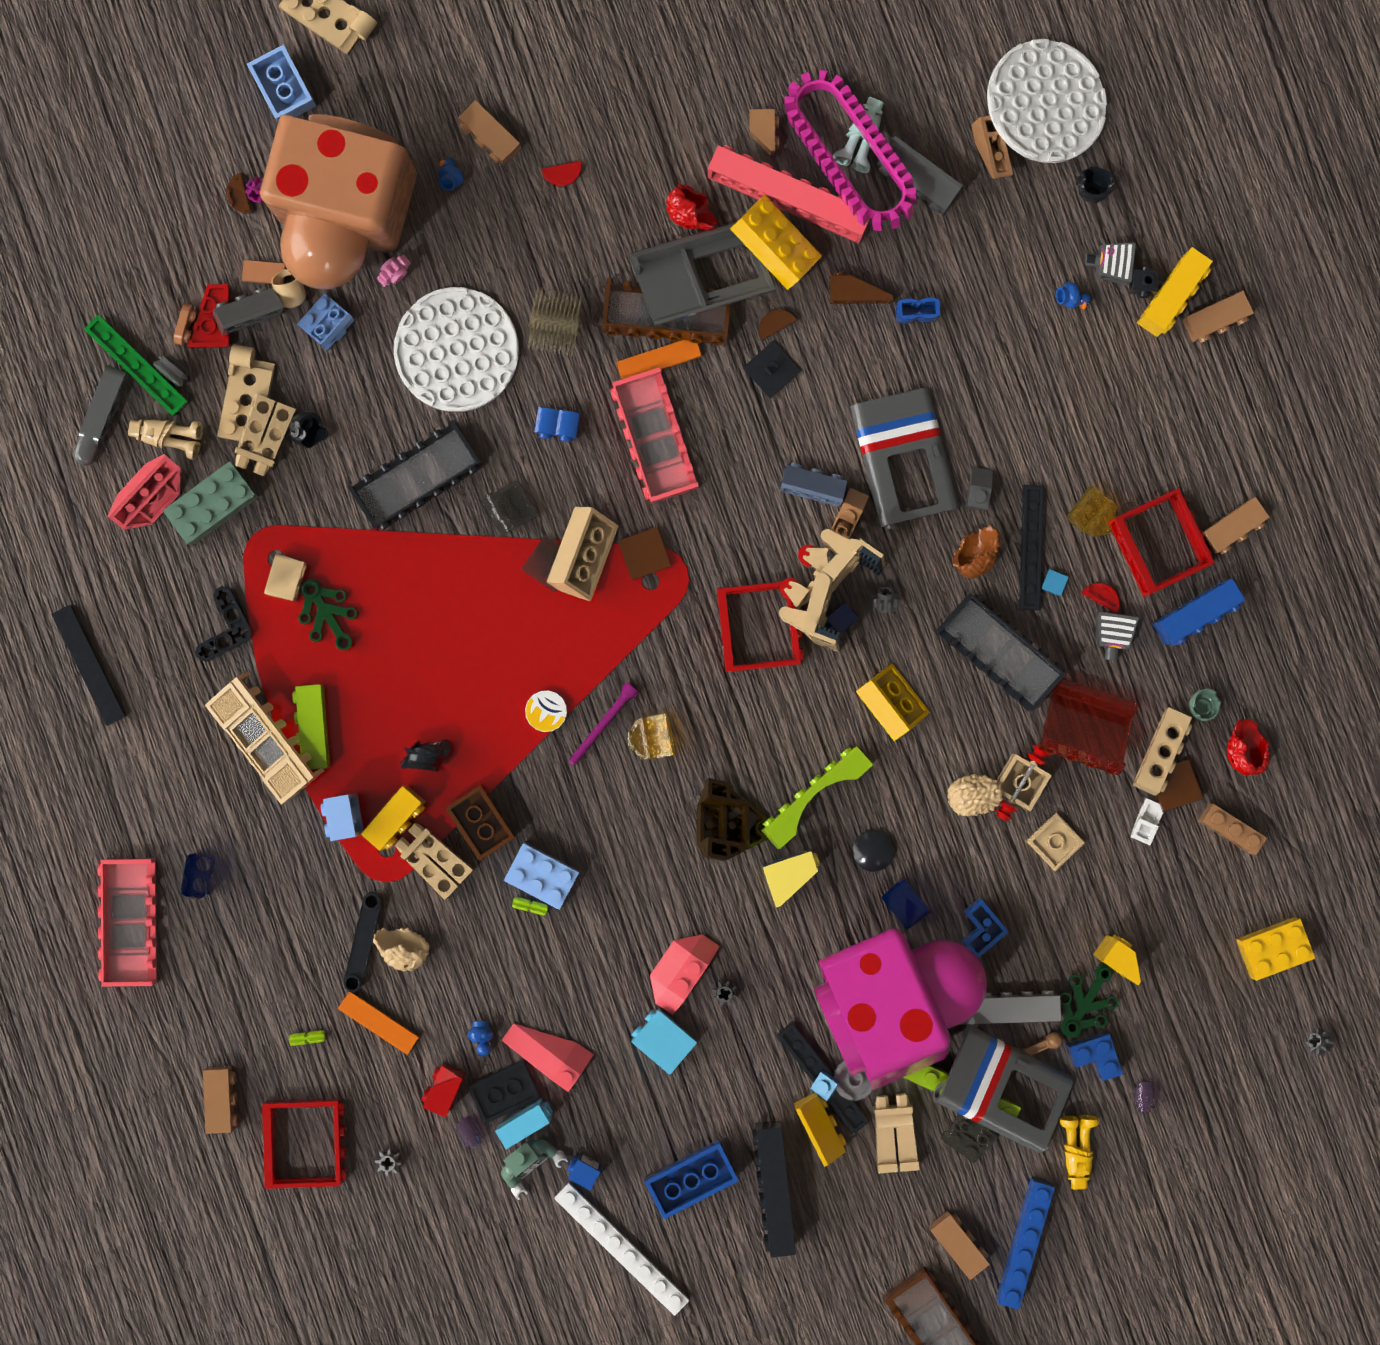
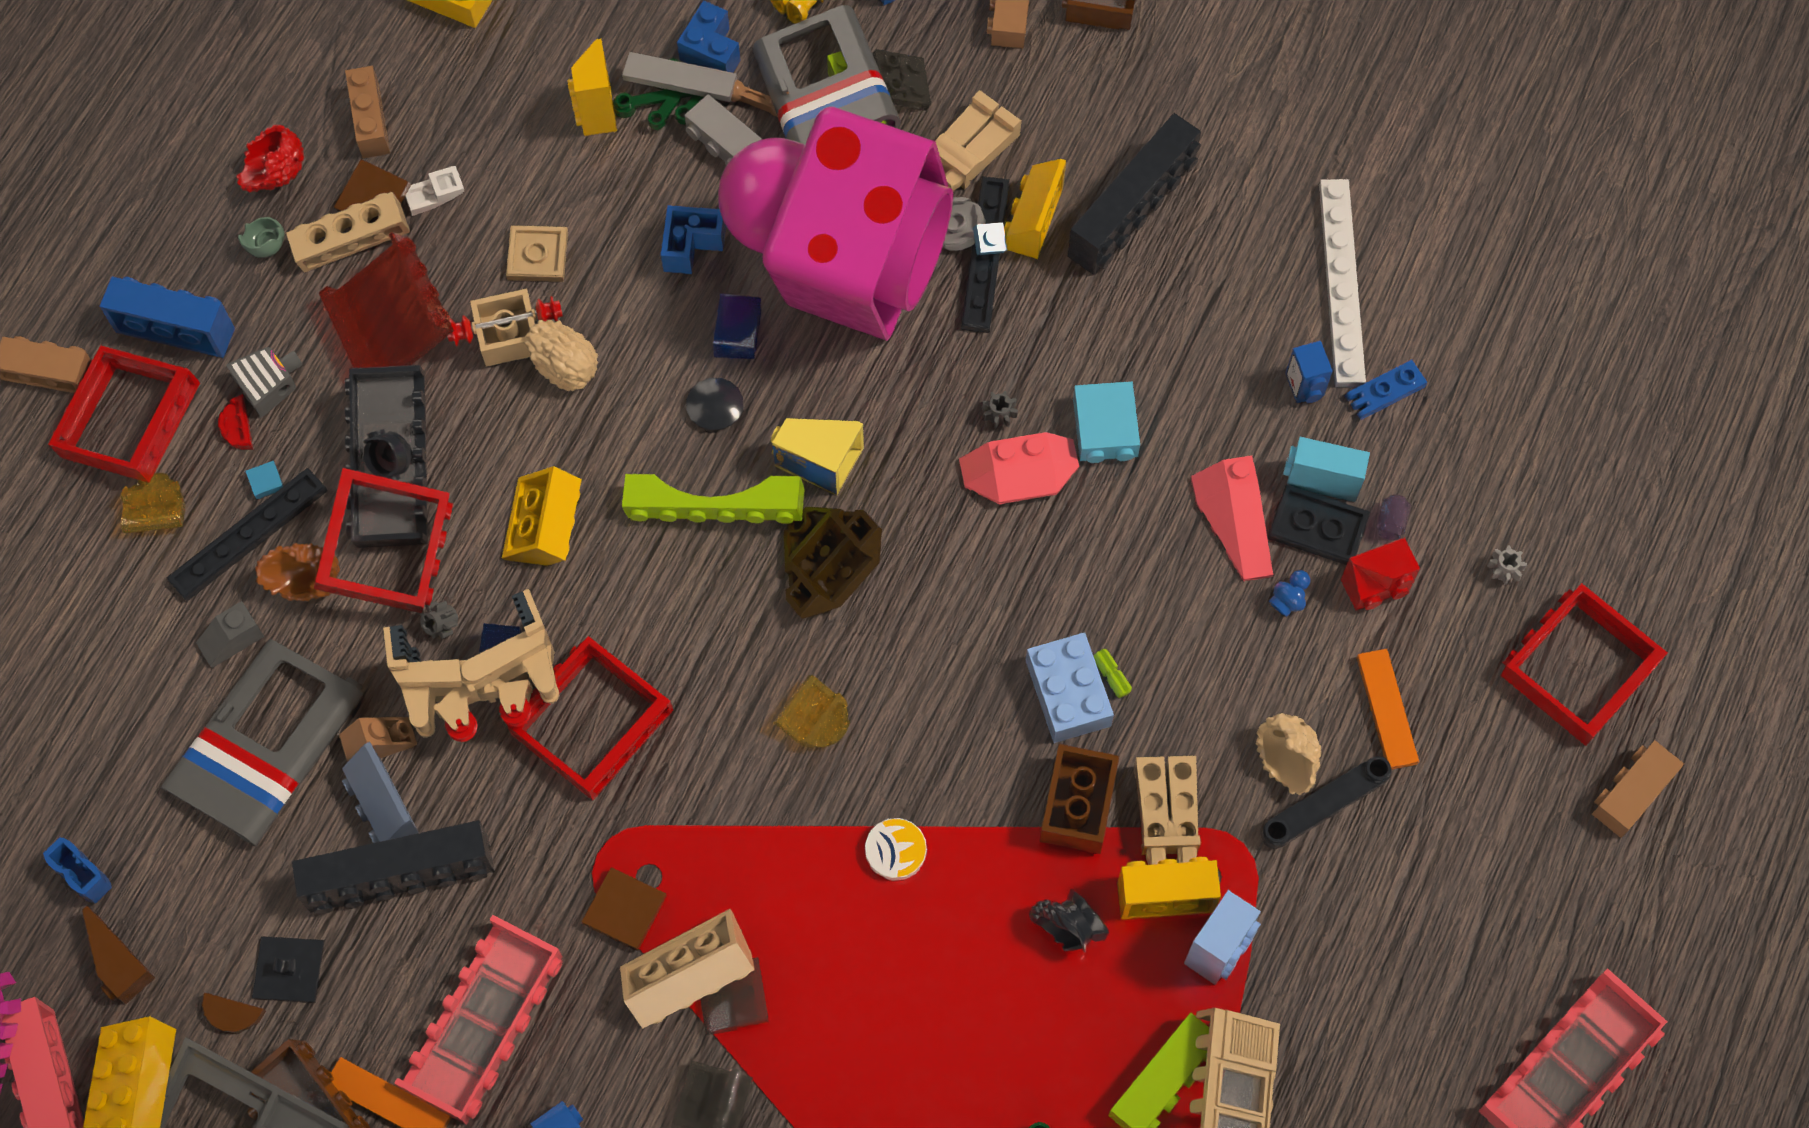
camera: 135 degrees left, 20 degrees down
(188, 877) = (1464, 1018): clear blue piece -> none
(303, 1038) = (1486, 768): lime piece -> none
(525, 1160) = (1358, 433): sand green torso -> none
(540, 1206) = (1387, 389): none -> blue hinge
(627, 693) = (792, 783): magenta piece -> none
(691, 1179) = (1208, 274): blue brick -> none
(770, 460) = (393, 867): none -> black brick
(977, 586) = (370, 593): none -> red window
(996, 650) = (387, 454): none -> black cap
(1088, 1016) = (679, 76): none -> light grey tile

